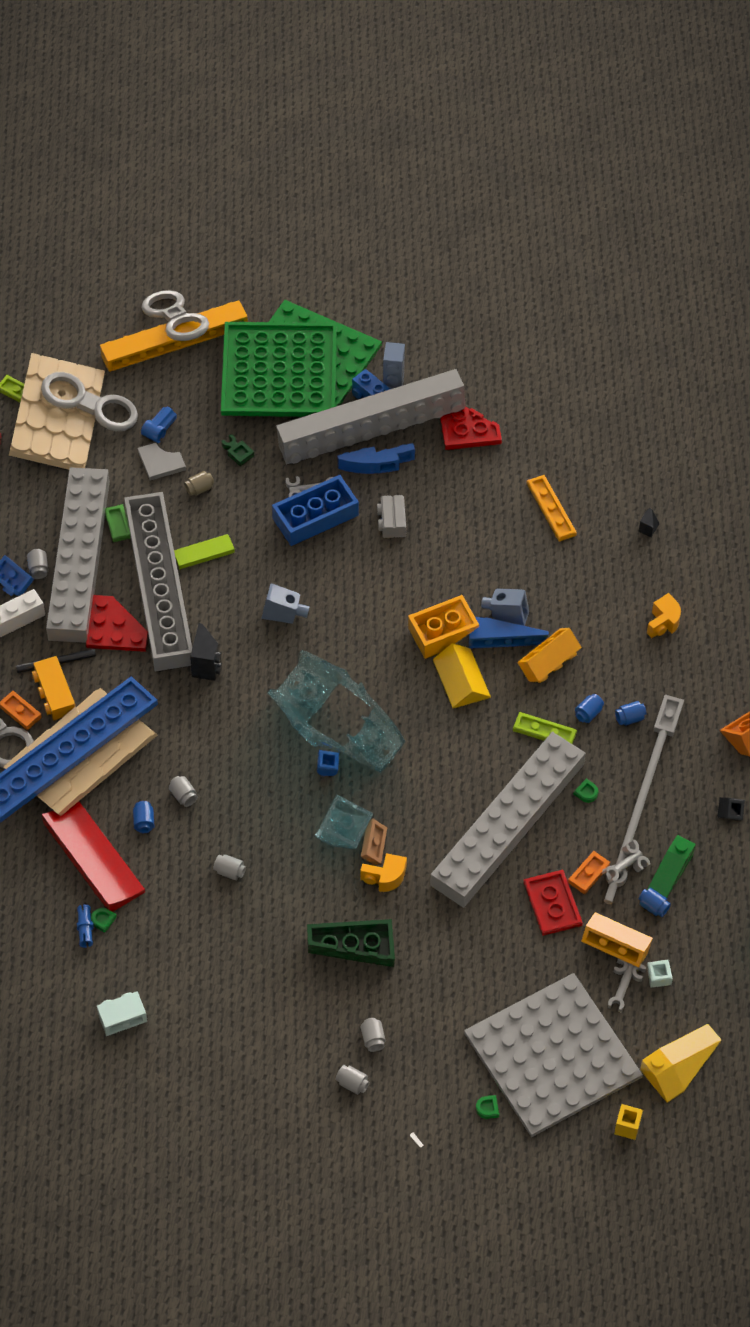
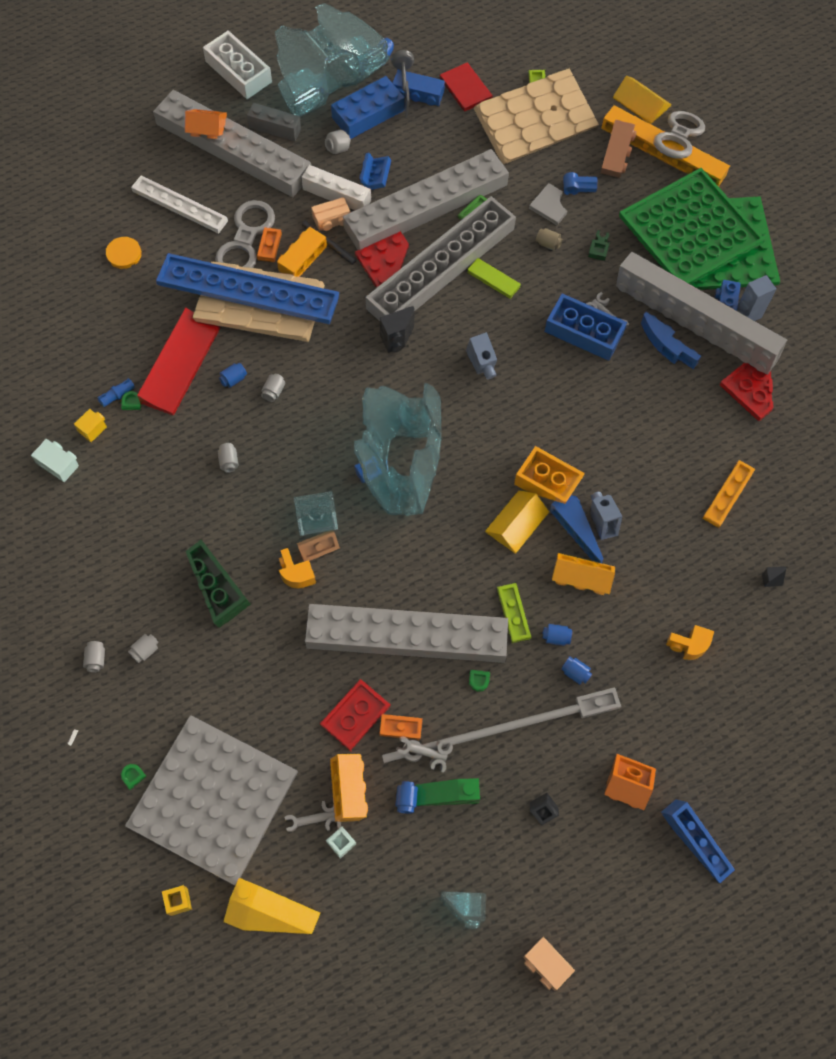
camera: 55 degrees right, 10 degrees up
(29, 639) = (330, 214): none -> light nougat brick
(37, 563) = (400, 181): light grey brick -> none
(89, 402) = (560, 129): light grey bar -> none
(106, 322) = (640, 100): none -> yellow slope
(106, 964) = (90, 425): none -> yellow brick
(151, 371) = (618, 149): none -> nougat brick
(392, 516) = (625, 383): light grey brick -> none

